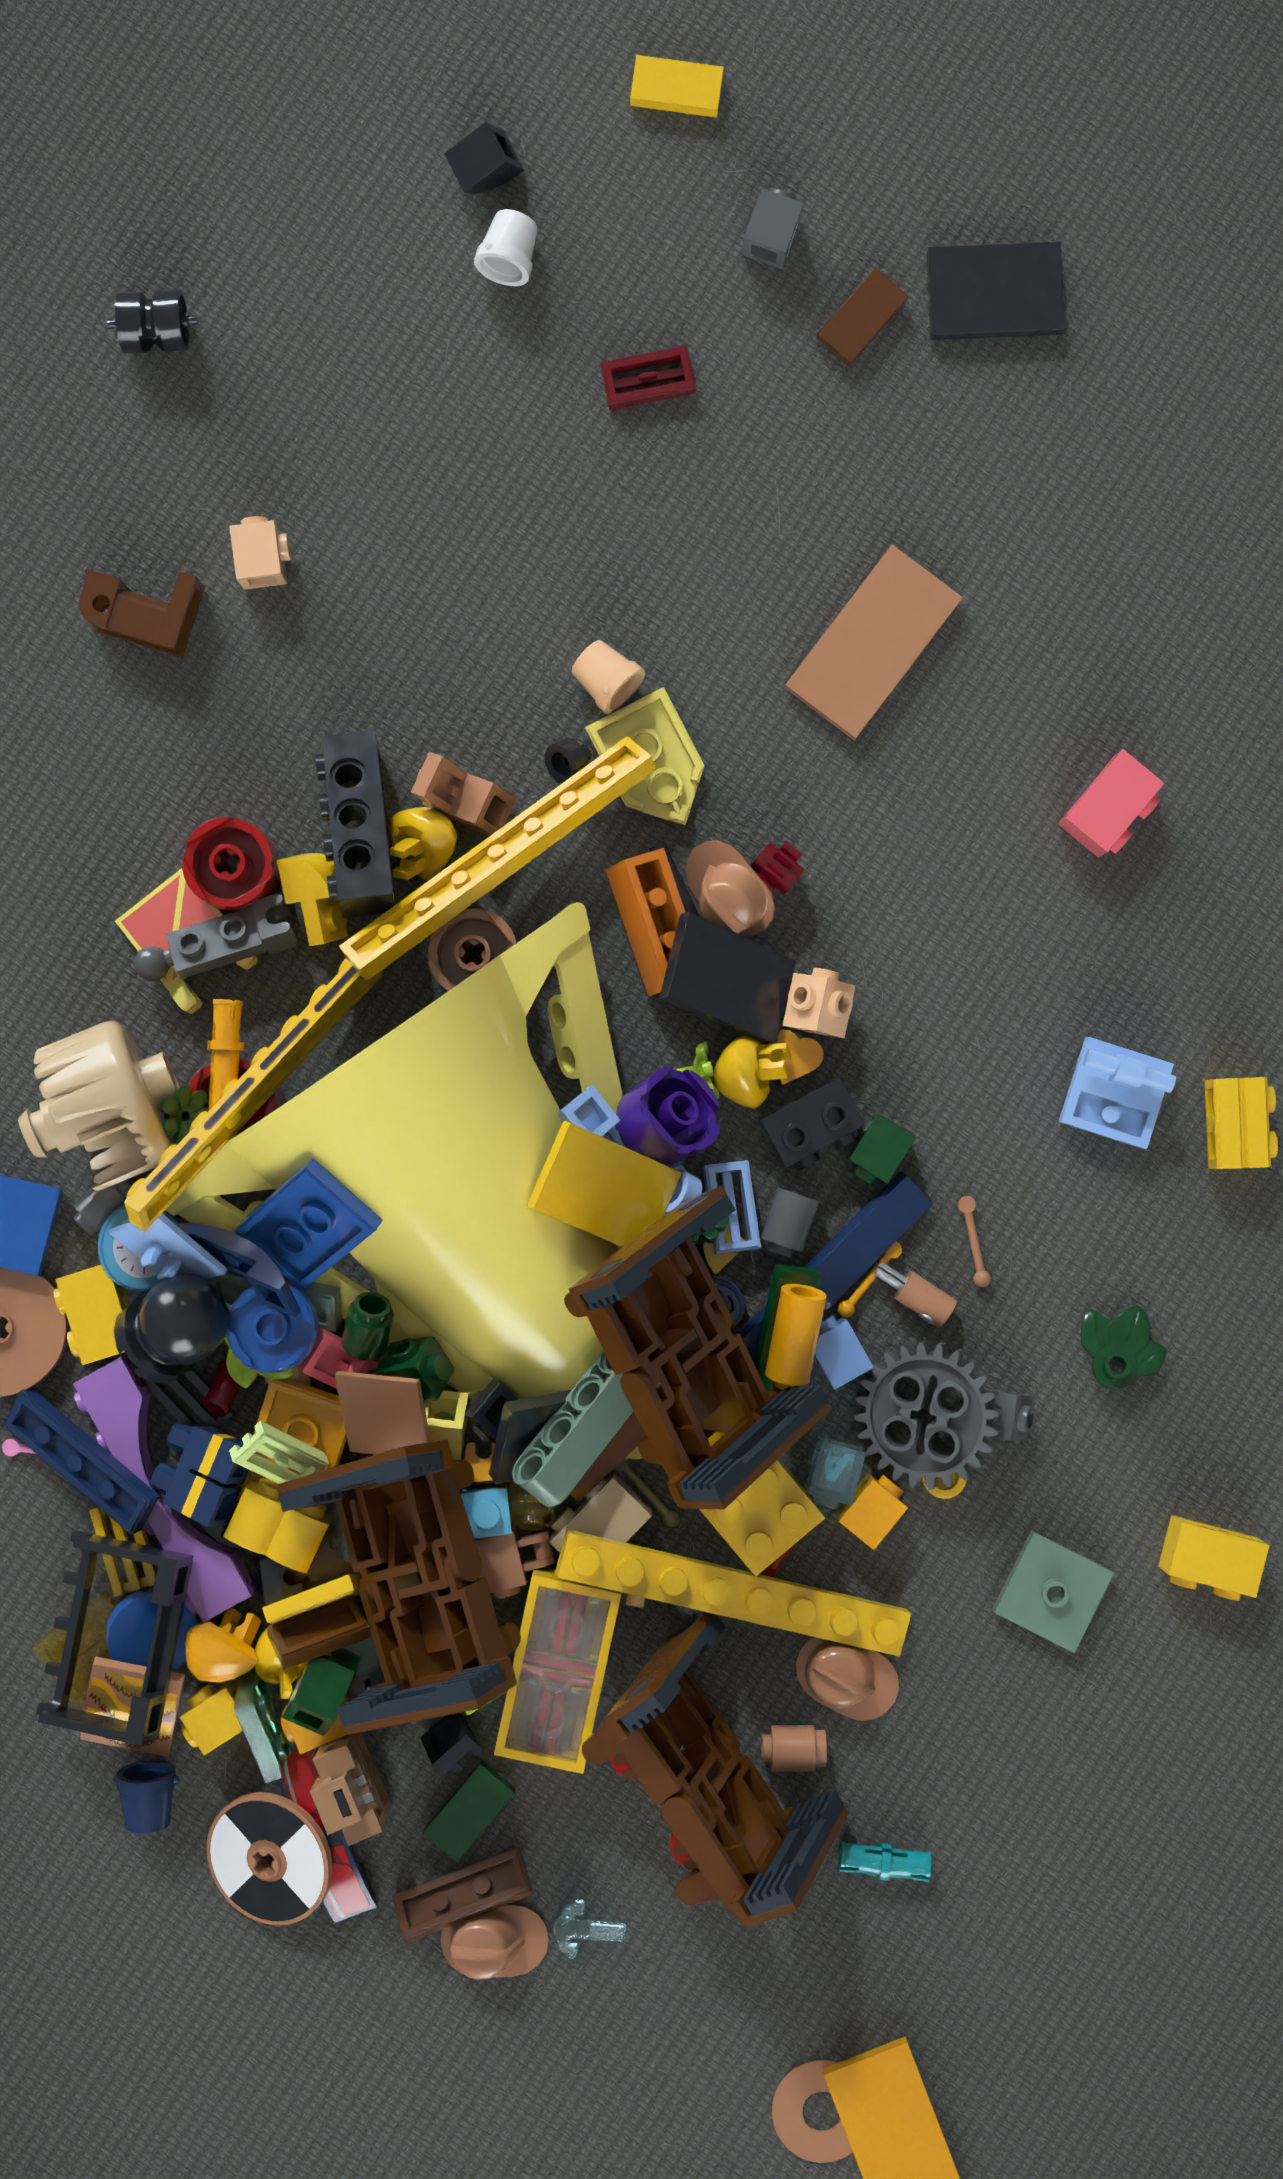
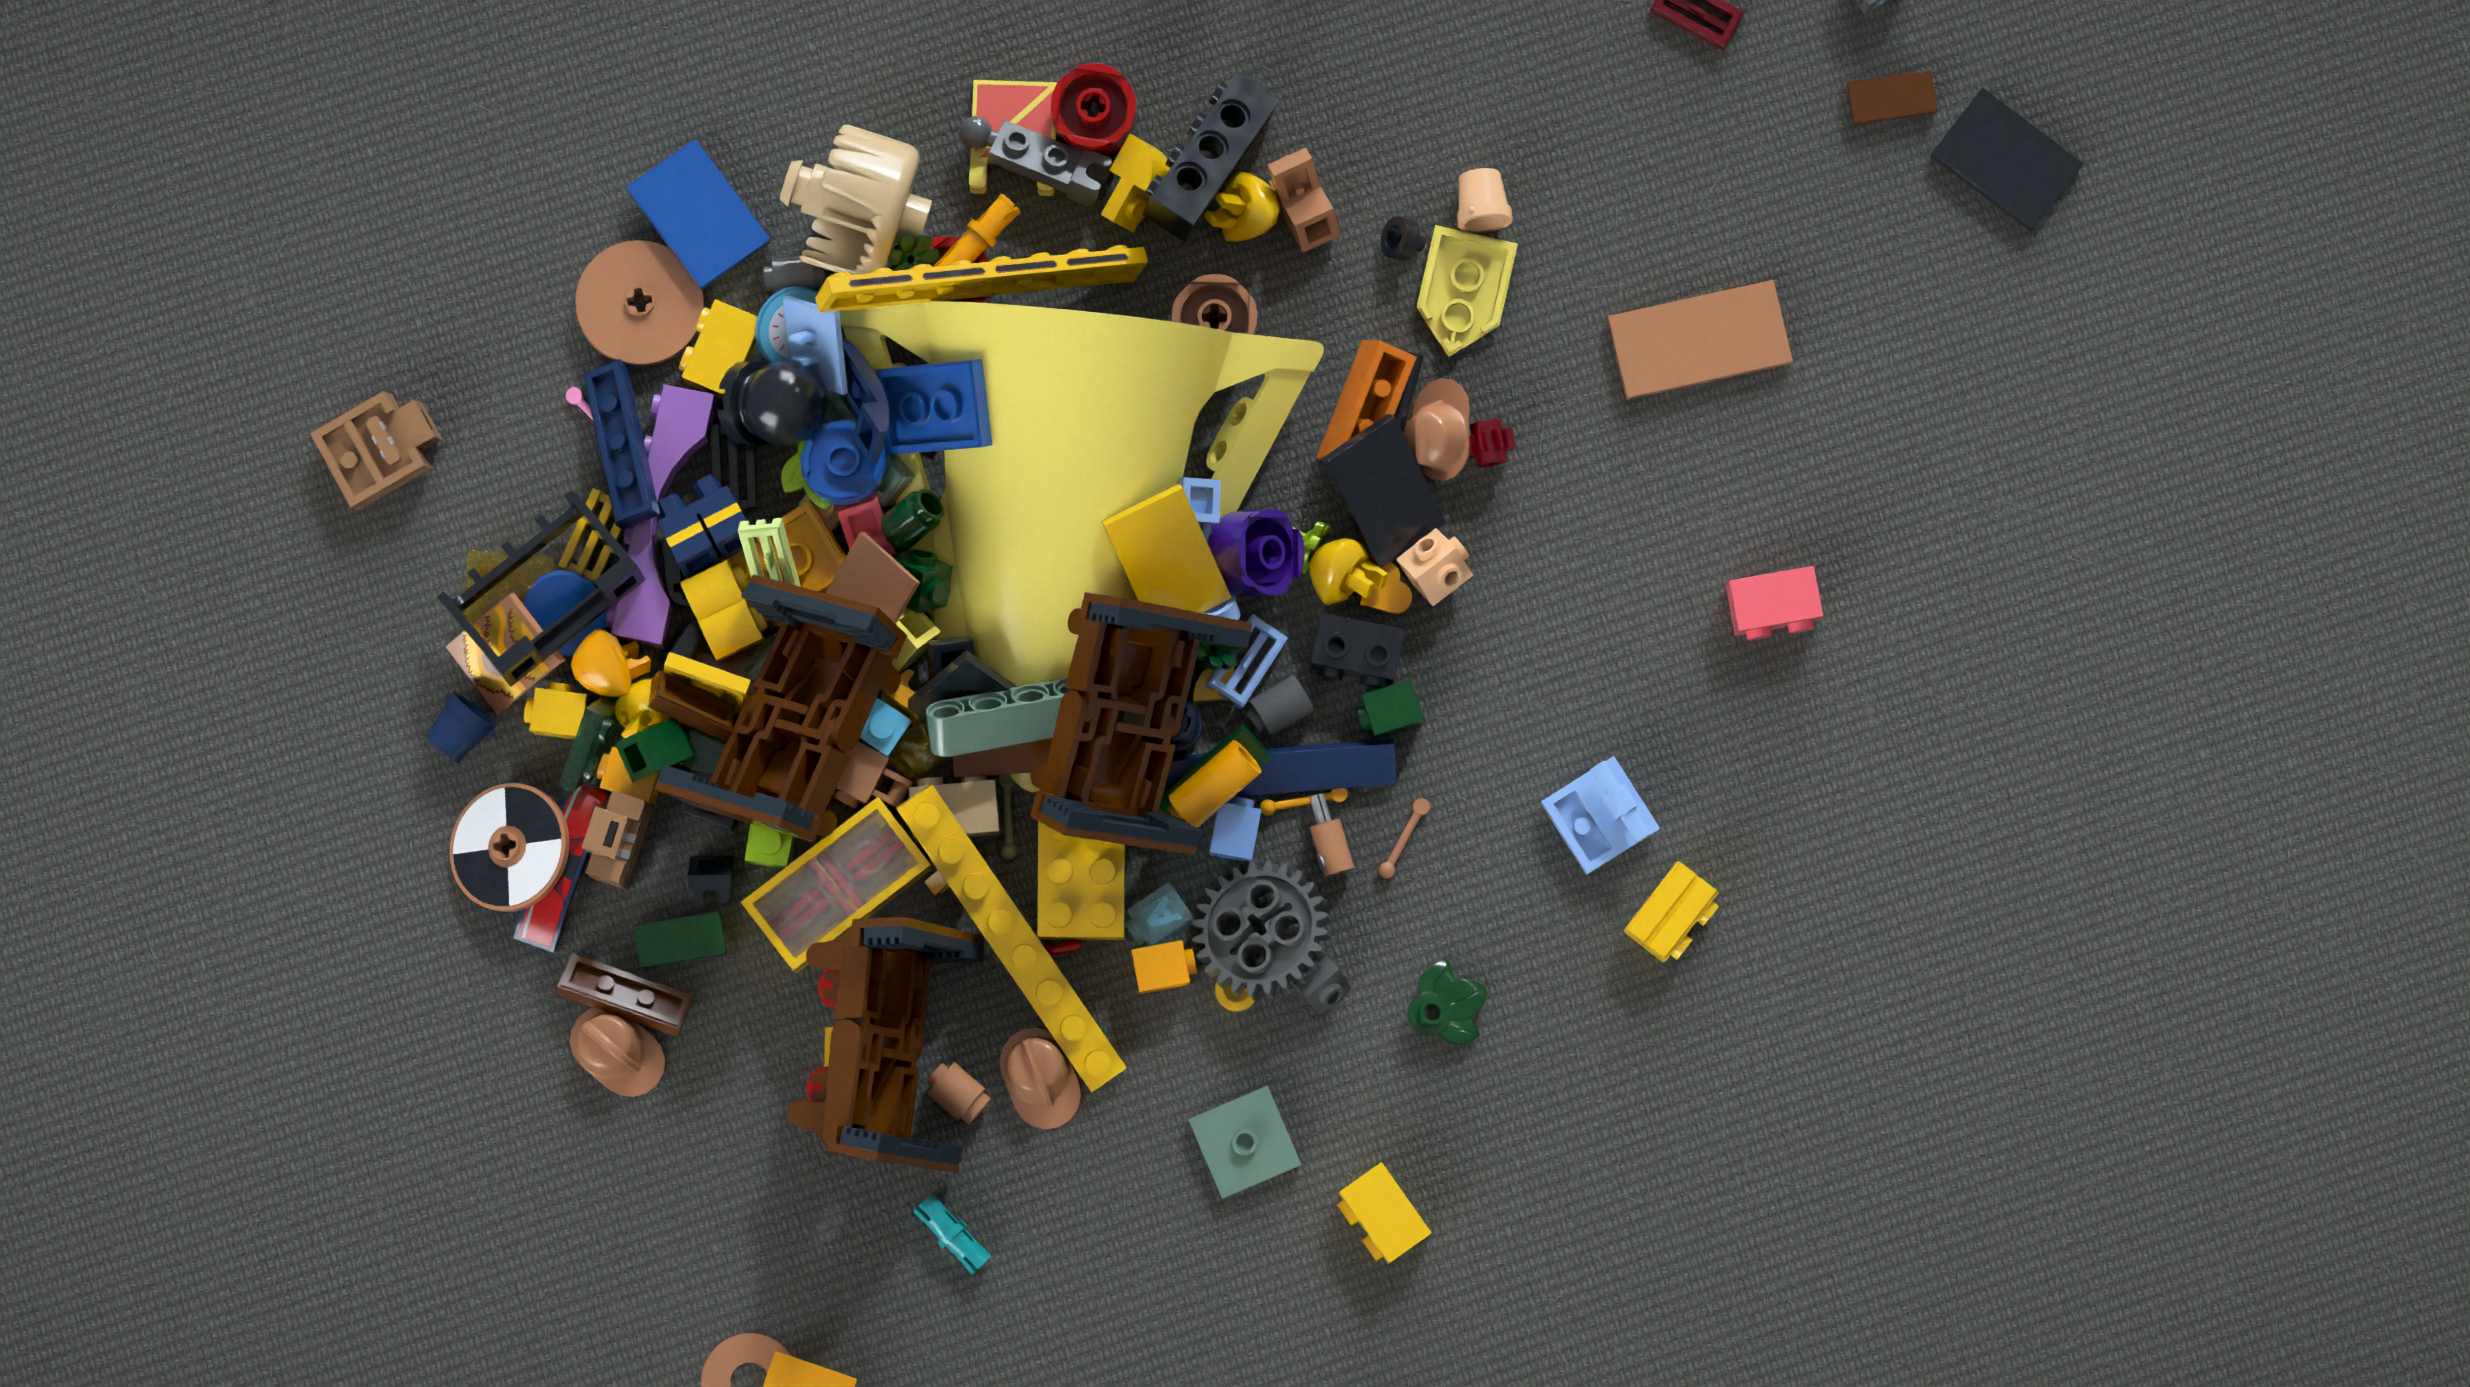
camera: 40 degrees right, 5 degrees down
(221, 1392) = (763, 481): dark red pin -> none
(497, 858) = (1291, 263): yellow plate -> none
(567, 1928) = (679, 1084): clear light blue piece -> none

